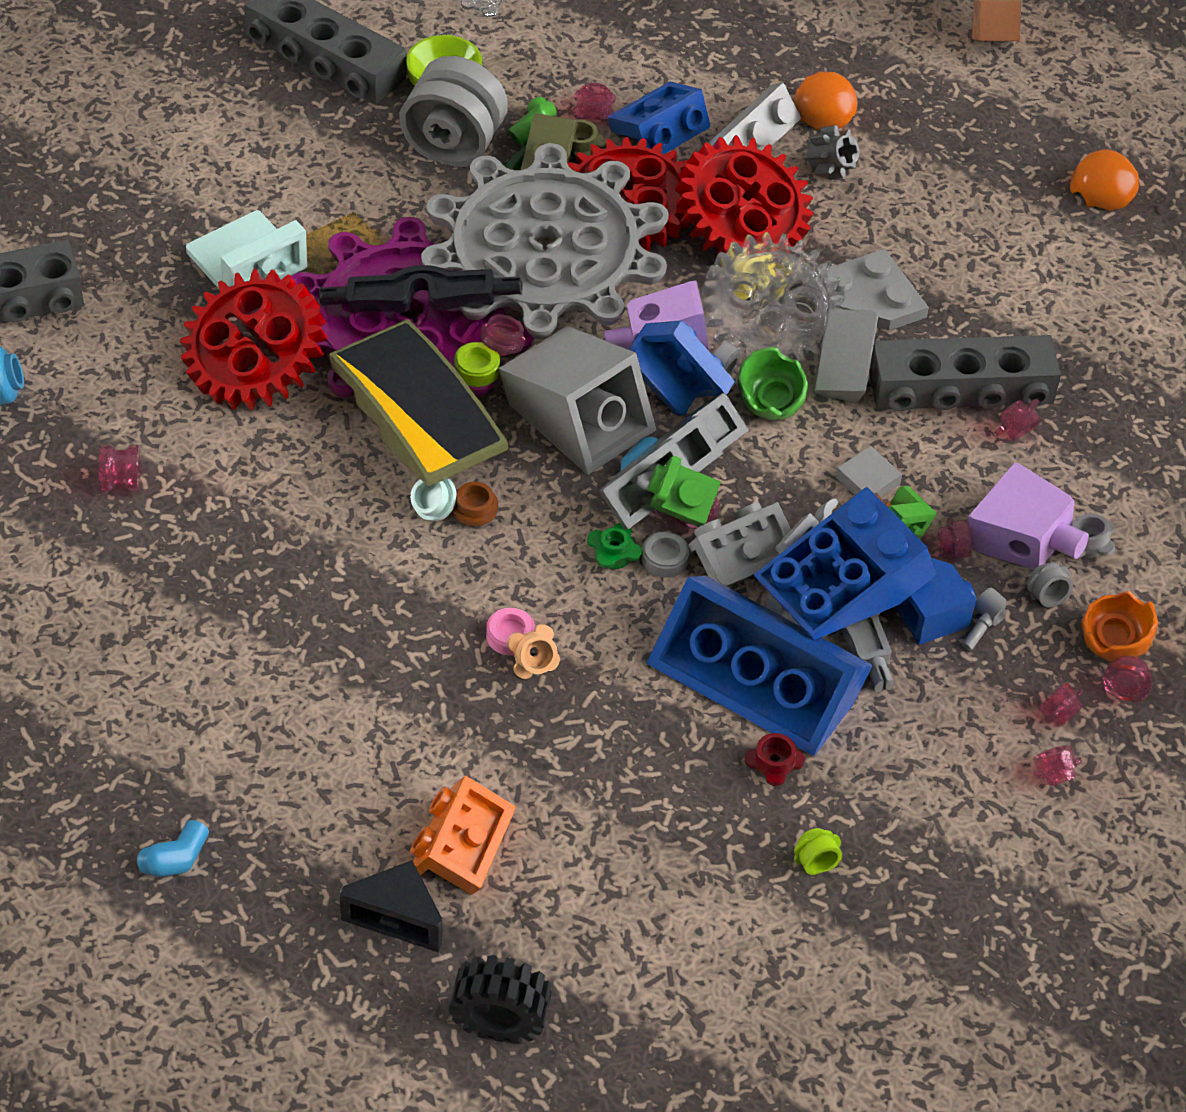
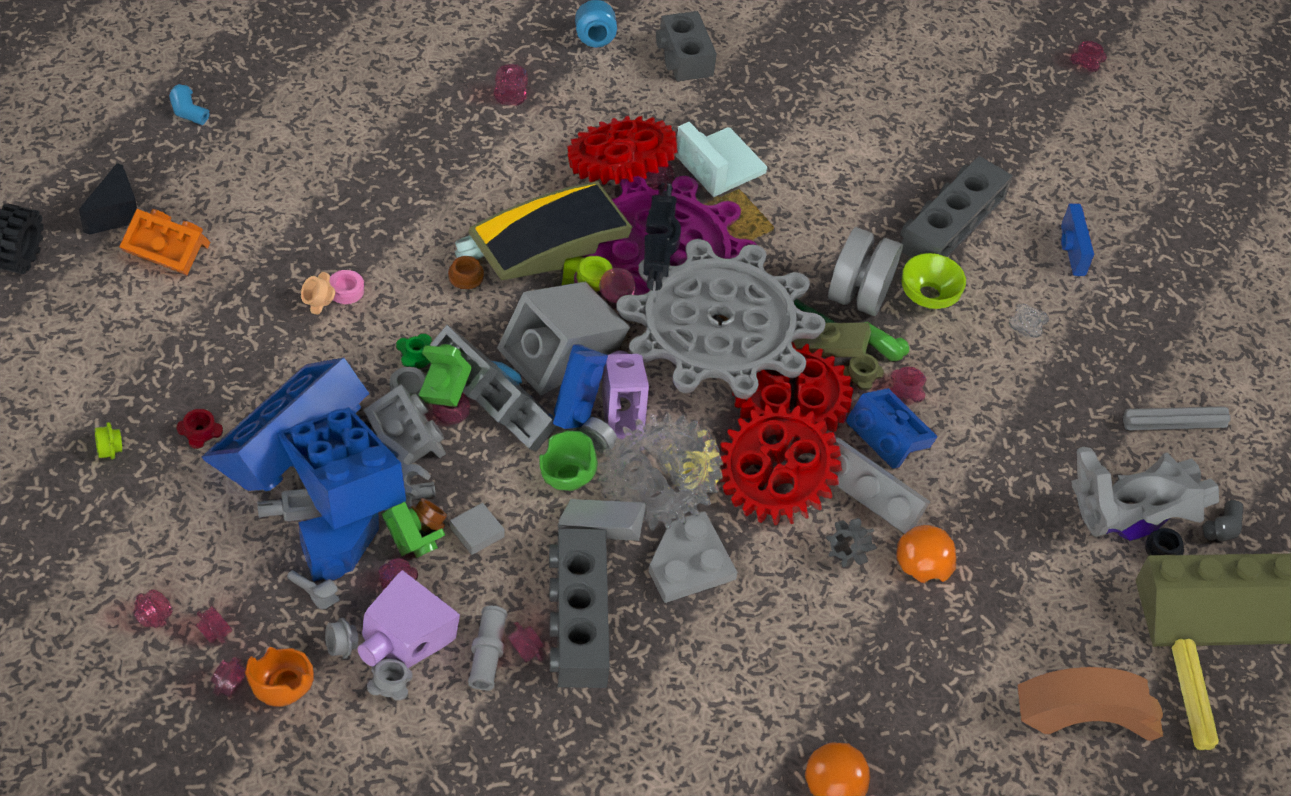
camera: 90 degrees right, 0 degrees up
(1031, 453) = (487, 648): none -> light grey pin

